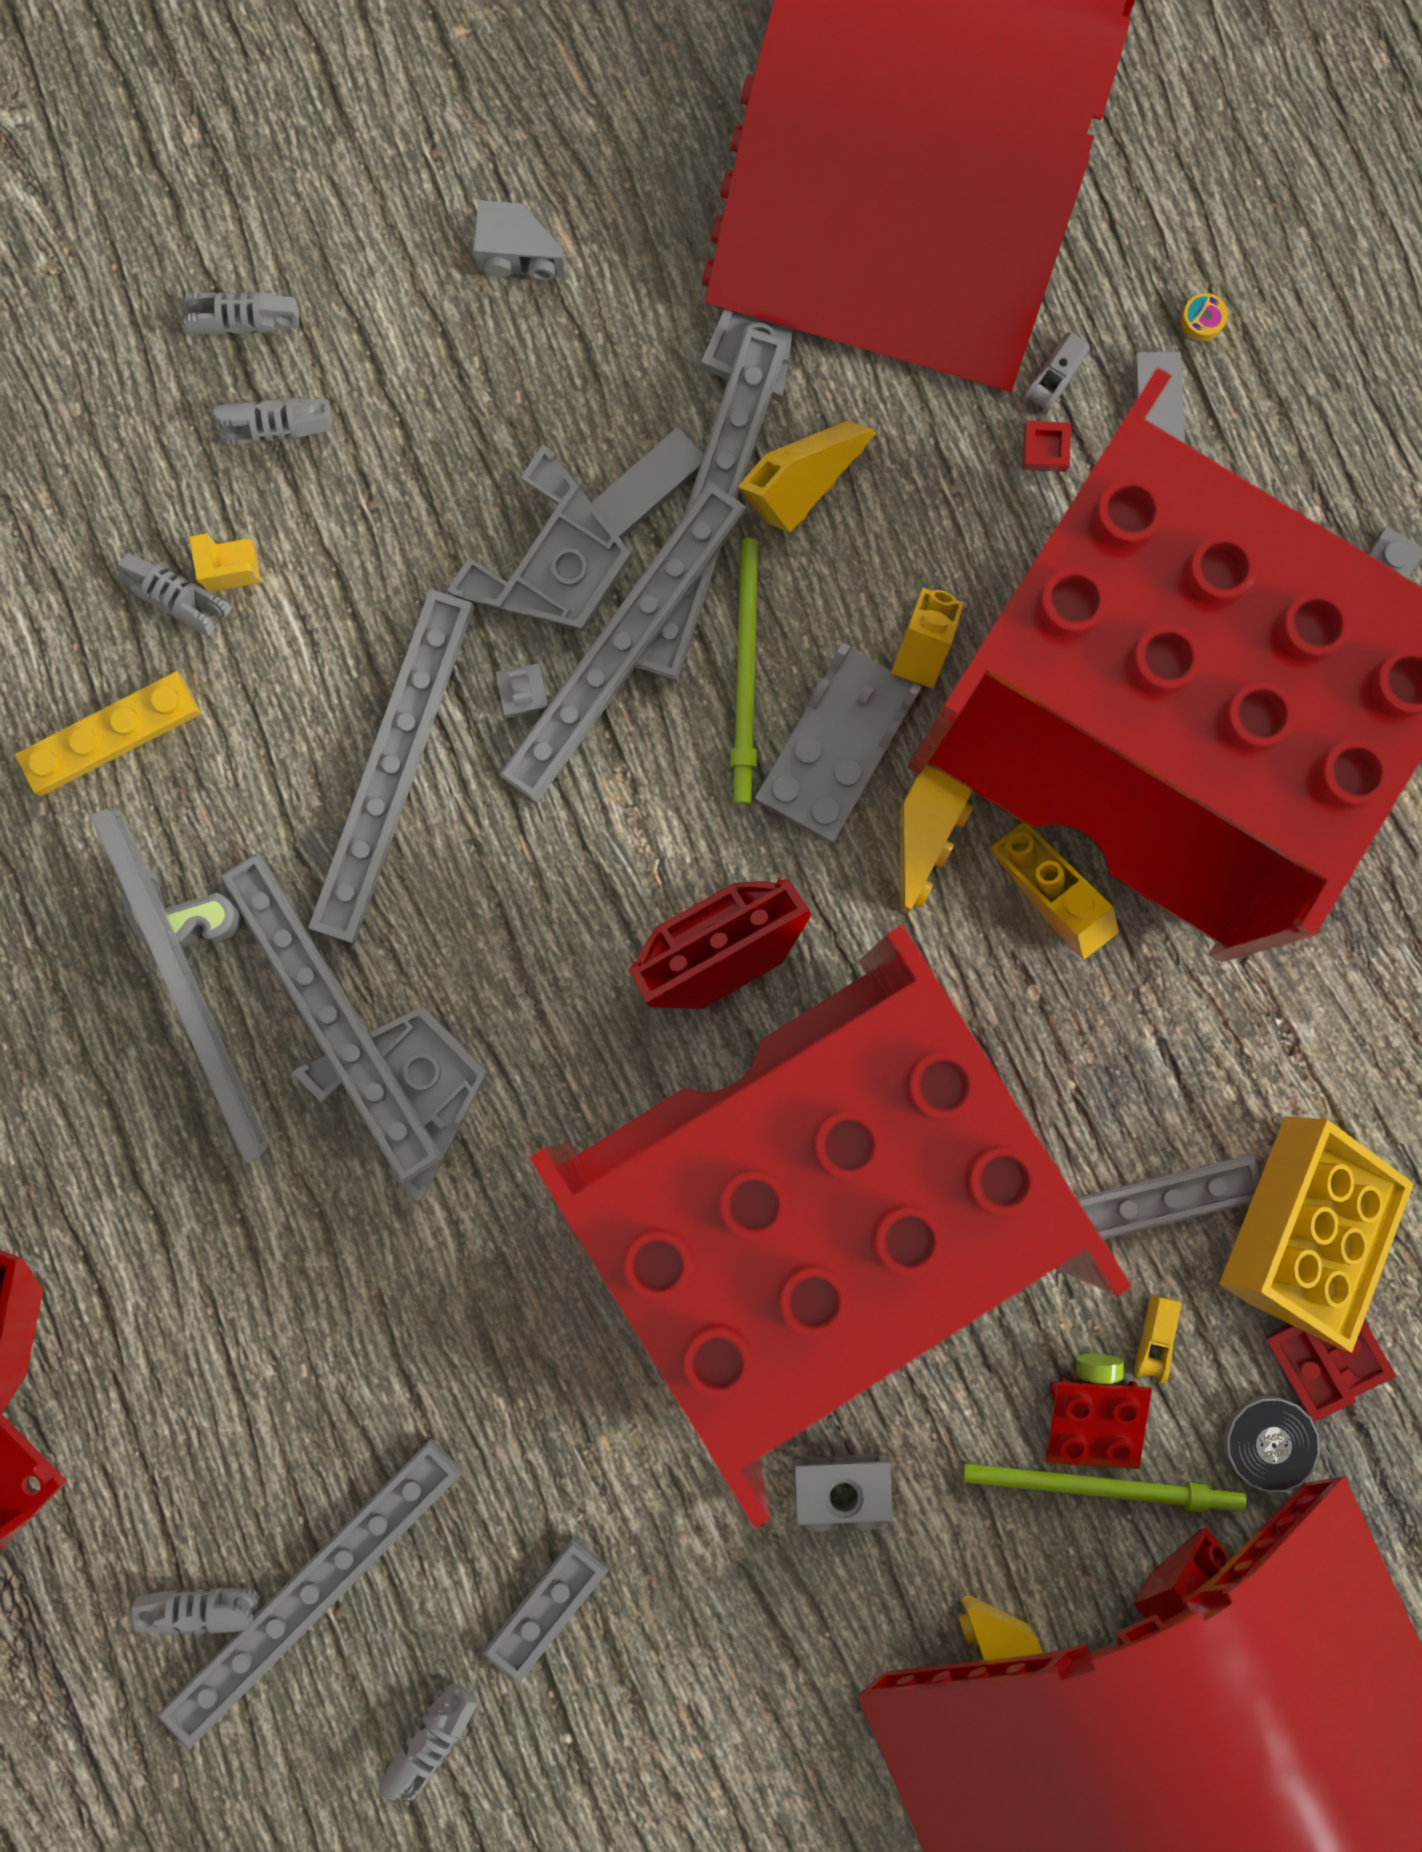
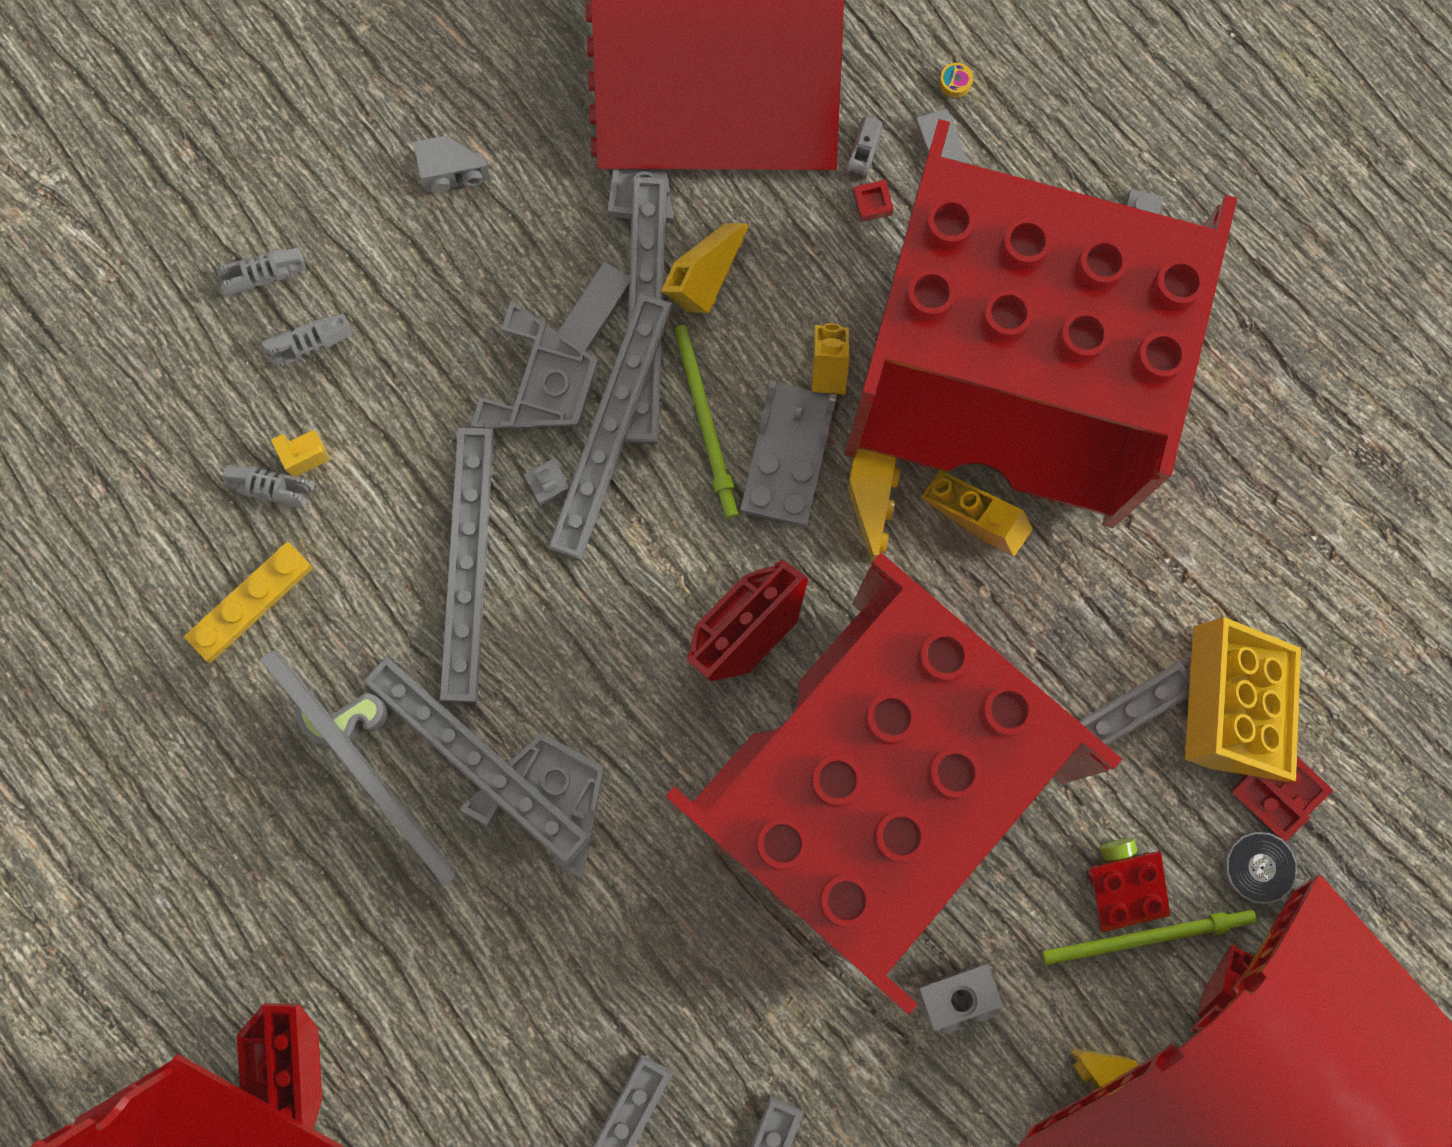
camera: 15 degrees left, 5 degrees down
(1159, 1330) = (1153, 808): yellow bar -> none

